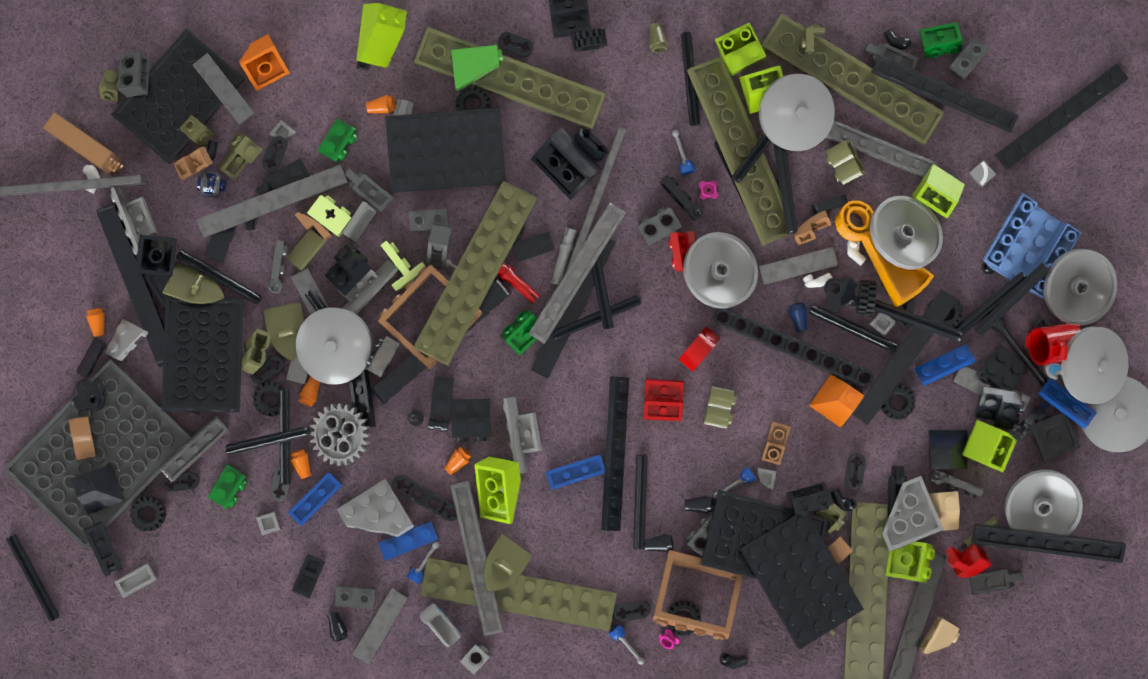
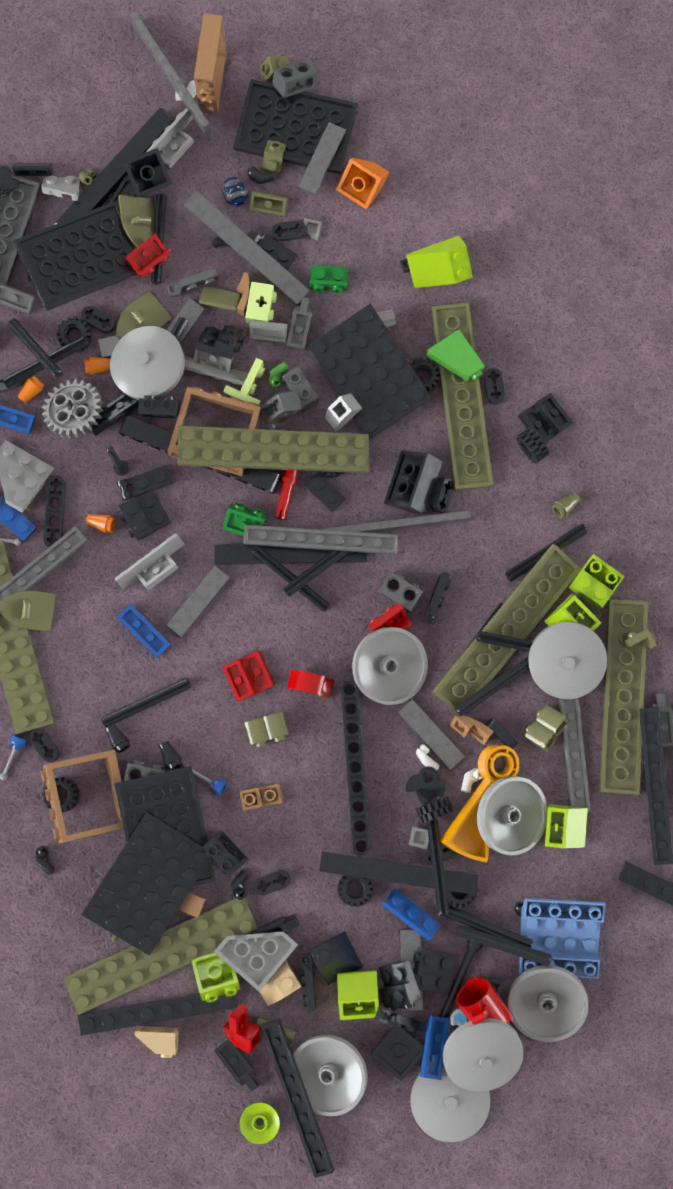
camera: 60 degrees right, 5 degrees down
(96, 321) = (67, 156): orange cone -> none
(127, 313) = (87, 177): none -> olive arm
(192, 163) = (244, 167): medium nougat slope -> none
(220, 243) = (187, 224): black slope -> none
(234, 294) = (148, 255): none -> red bracket
(245, 147) = (281, 203): olive bracket -> none
(255, 351) = (107, 298): olive brick -> none
(381, 105) = (380, 300): orange cone -> none
(403, 236) = (275, 374): none -> bright green arm
(470, 193) = (342, 411): none -> light grey slope
(497, 488) = (93, 568): lime slope -> none
(566, 248) = (334, 521): light grey pin -> none
(573, 410) = (198, 601): none -> flat silver tile
(615, 453) = (177, 657): black plate -> none
(669, 639) = (34, 791): dark pink plate -> none
(686, 166) = (466, 589): hinge -> none
(704, 186) = (456, 614): dark pink plate -> none
(767, 477) = (226, 805): light grey tile -> none
(799, 316) = (386, 758): dark blue cone -> none
(835, 517) = (221, 885): olive bracket -> none
(836, 400) = (327, 831): orange slope -> none
(853, 328) = (401, 817): black axle -> none
(982, 173) = (602, 858): light grey tile -> none
(1062, 590) = (259, 1133): none -> lime dish

